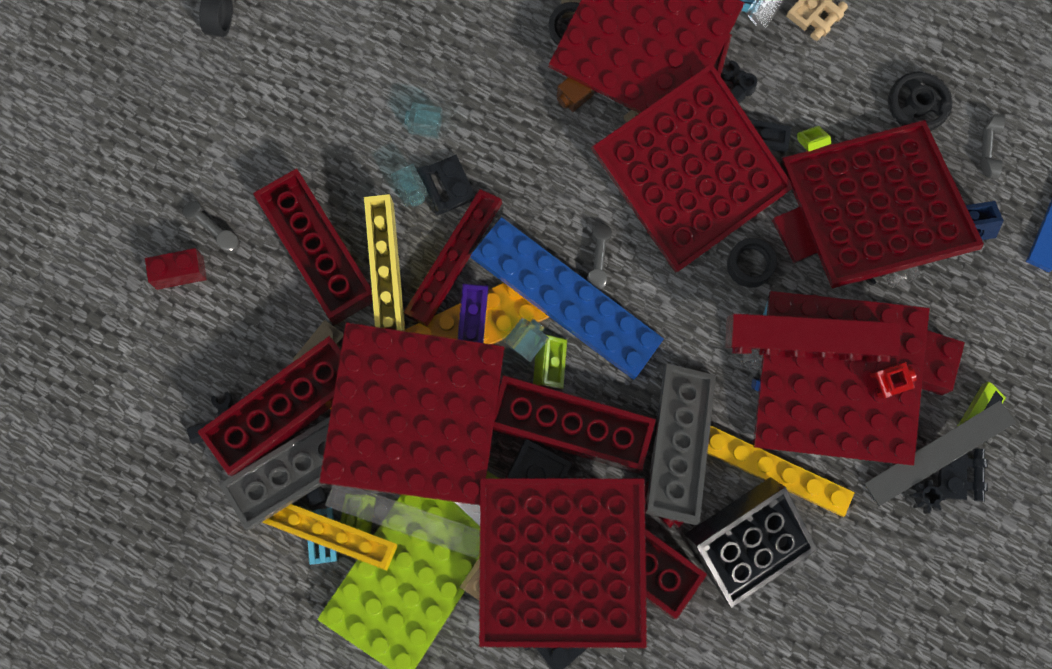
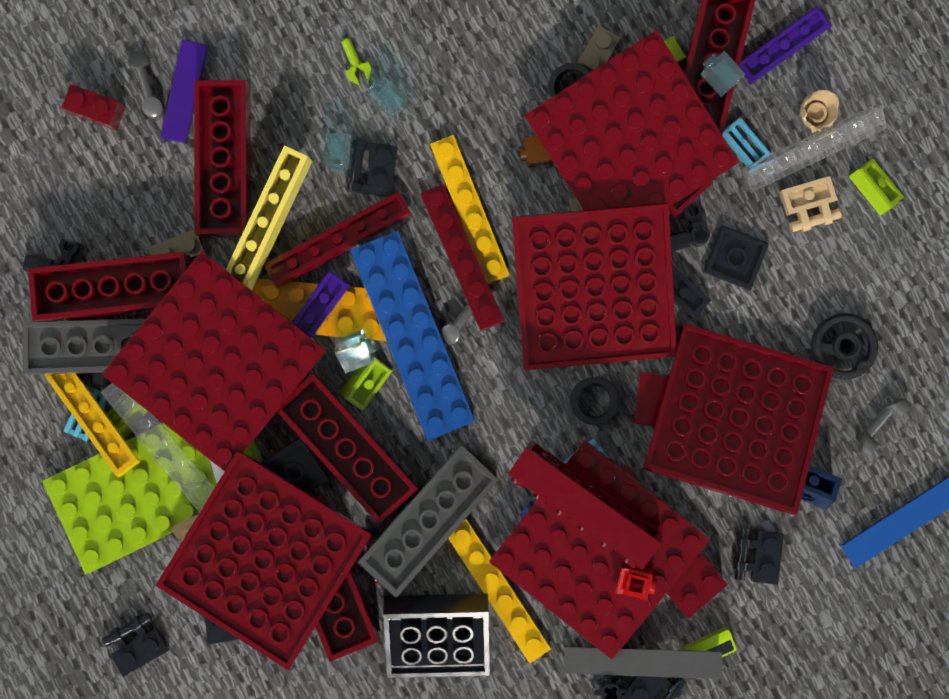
camera: 30 degrees right, 10 degrees up
(247, 214) = (181, 98): none -> dark purple tile
(379, 110) = (355, 62): none -> lime bar
(548, 171) = (469, 208): none -> yellow plate
(568, 211) = (462, 258): none -> dark red plate
(787, 85) = (736, 258): none -> black tile
(813, 138) = (725, 322): lime tile -> none
(975, 306) = (766, 556): none -> black plate

